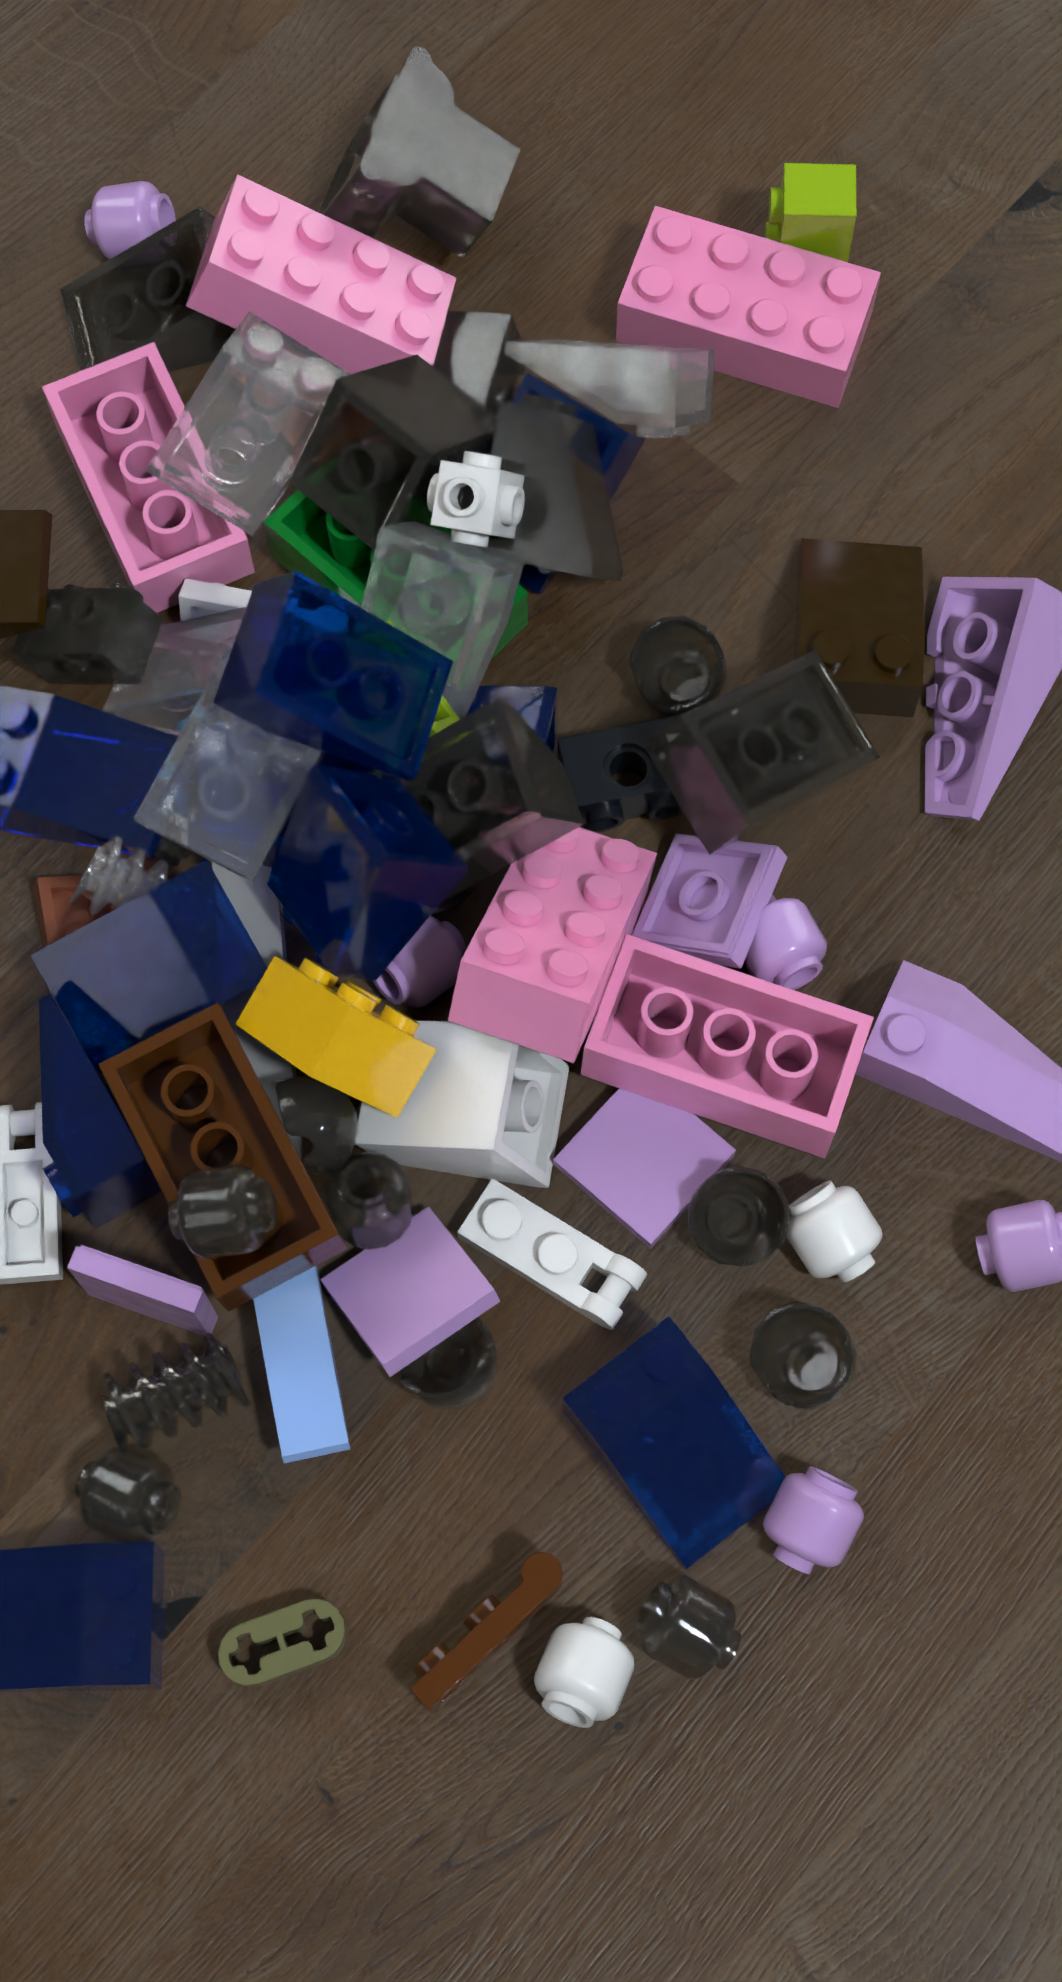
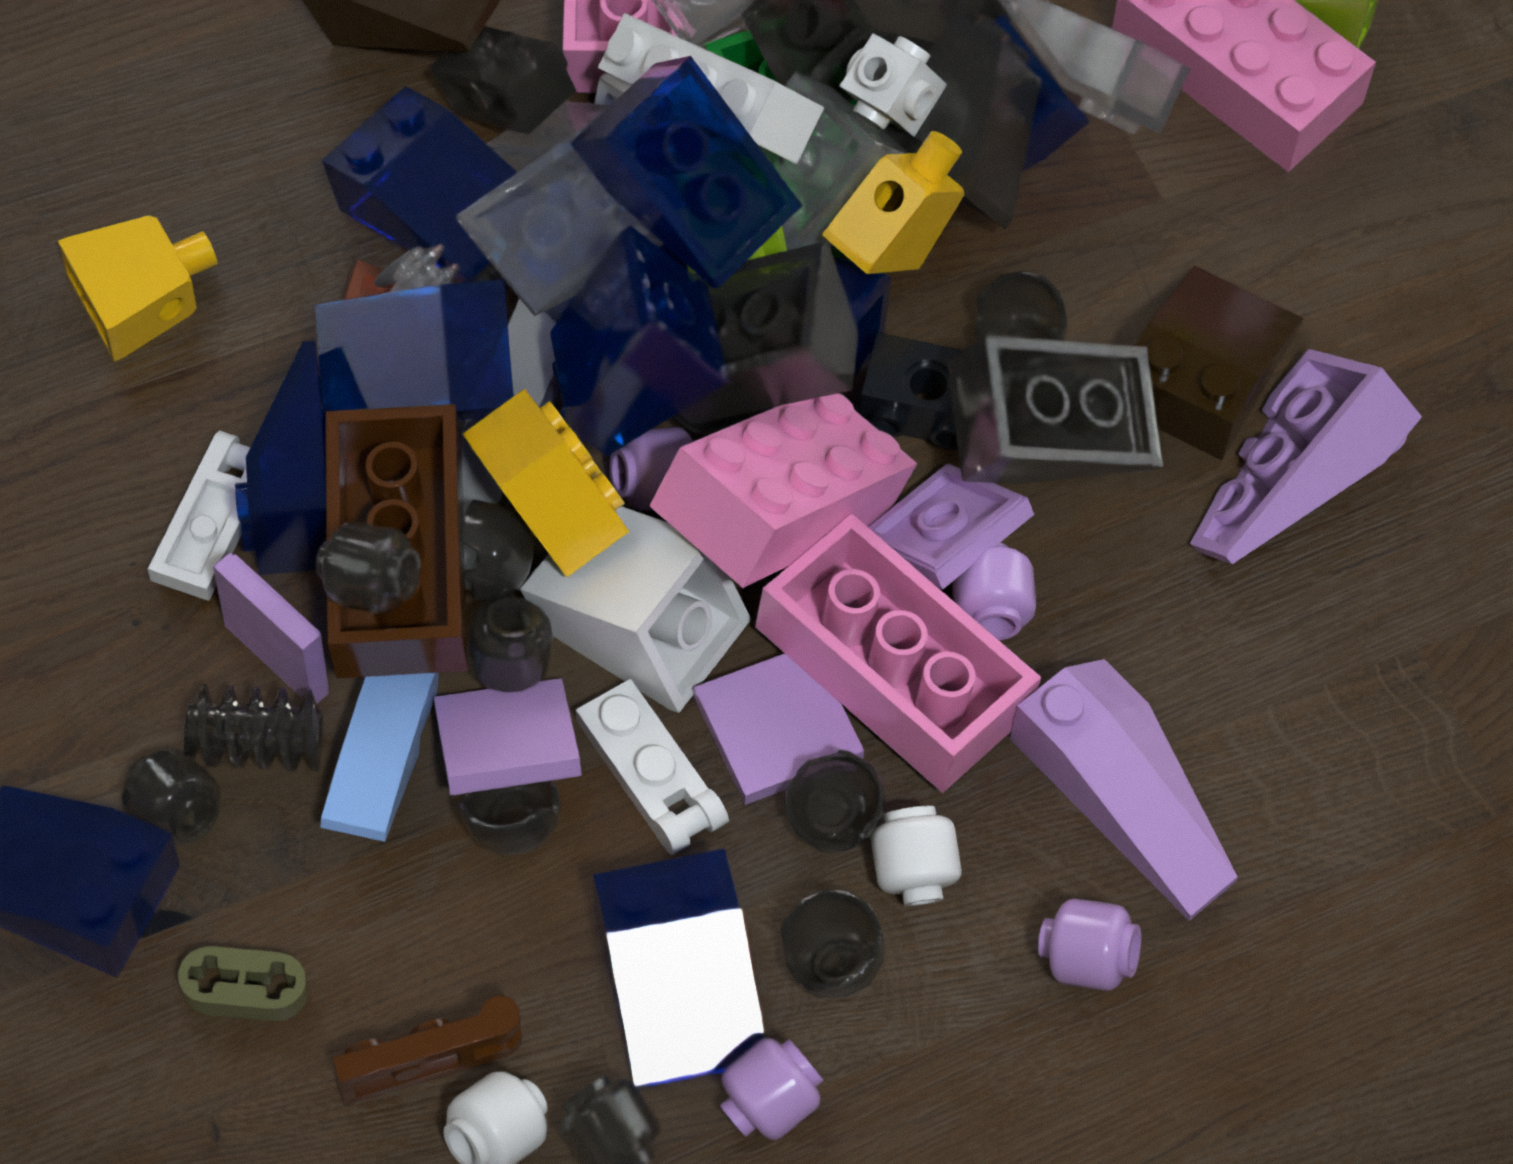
camera: 20 degrees right, 10 degrees down
(376, 579) = (768, 110): none -> white brick
(536, 618) = (899, 208): none -> yellow torso

